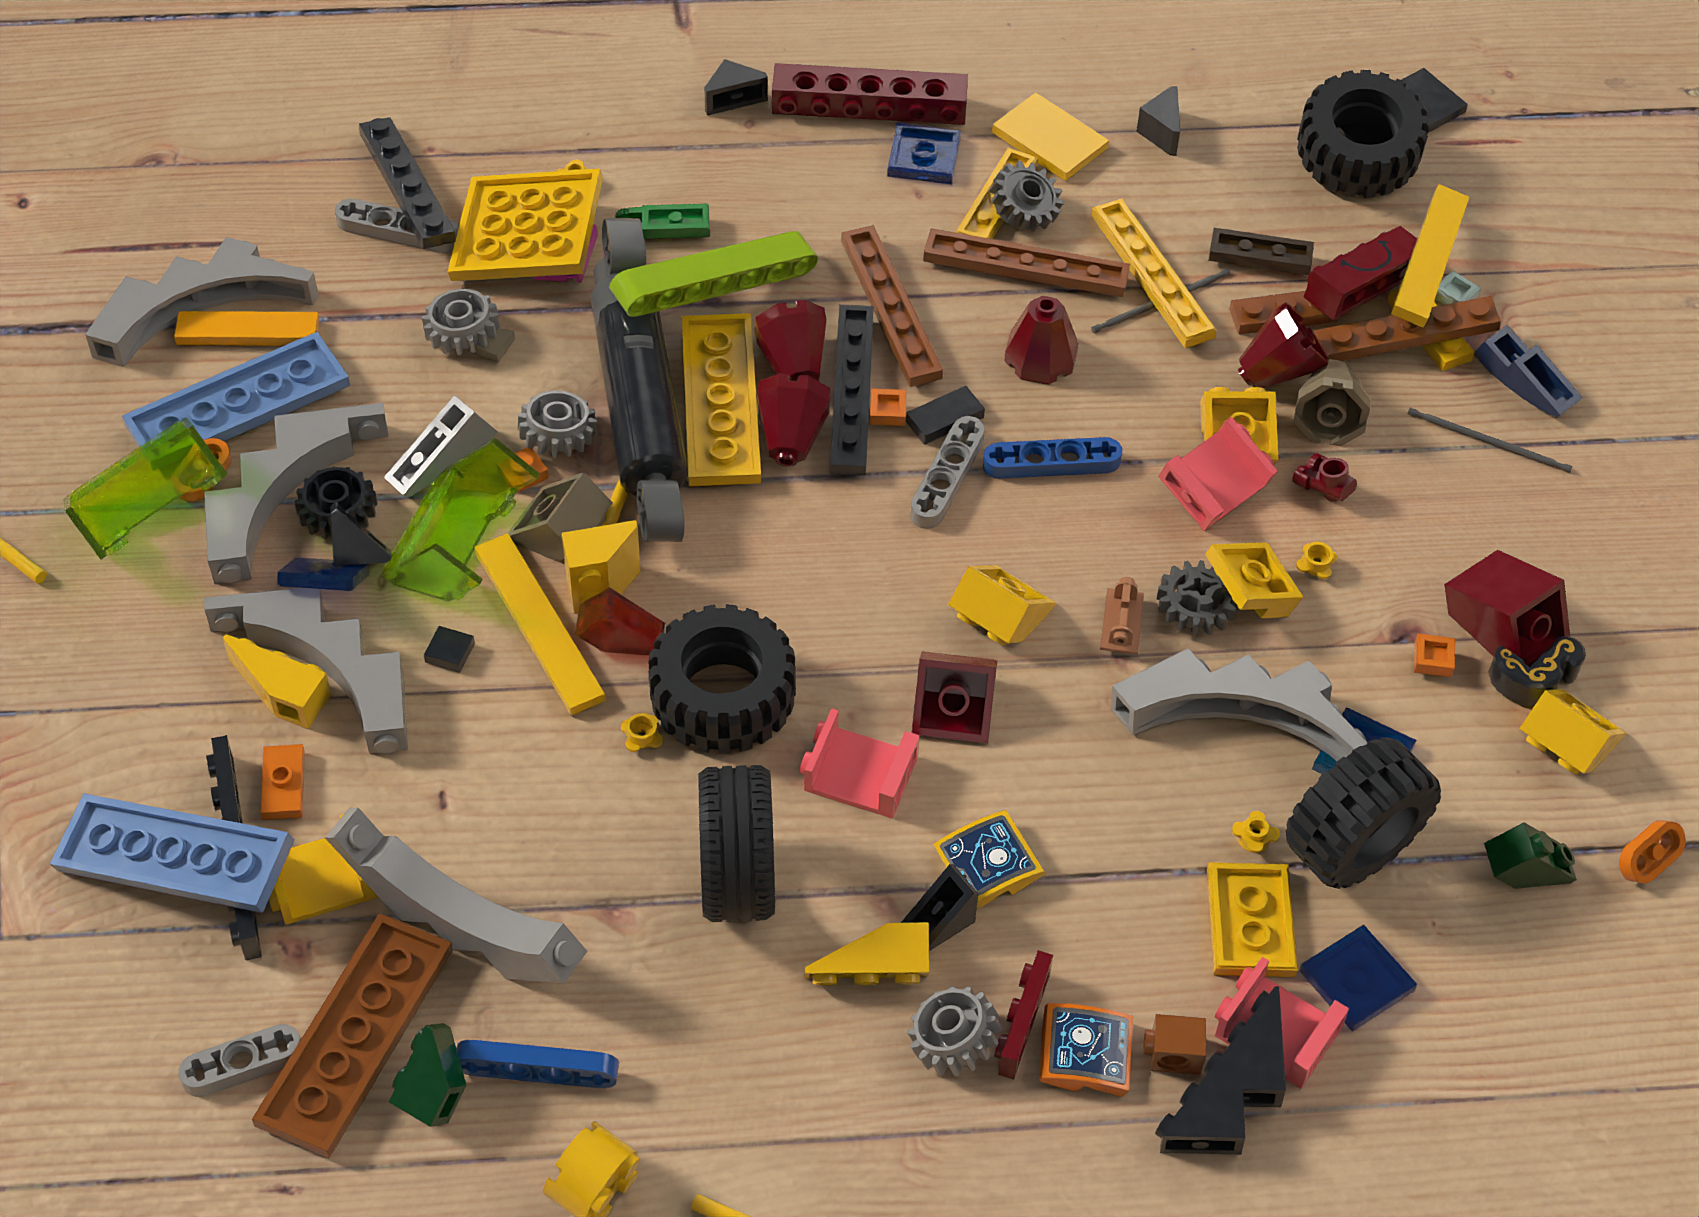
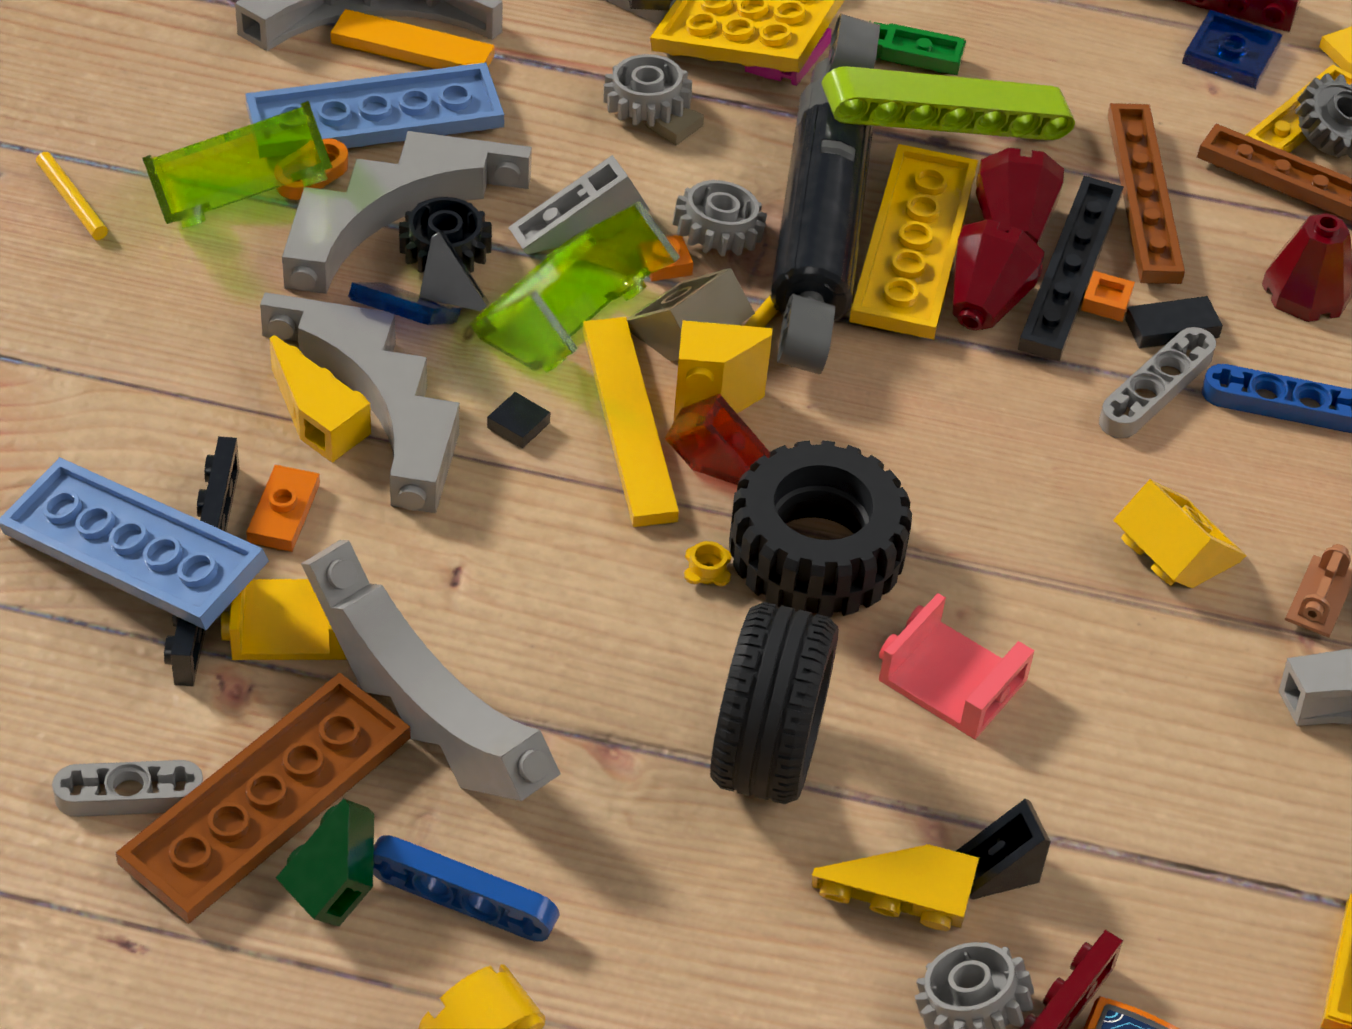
camera: 15 degrees right, 5 degrees down
(954, 697) = (1090, 623): dark red slope -> none
(991, 856) = (1082, 812): slope -> none

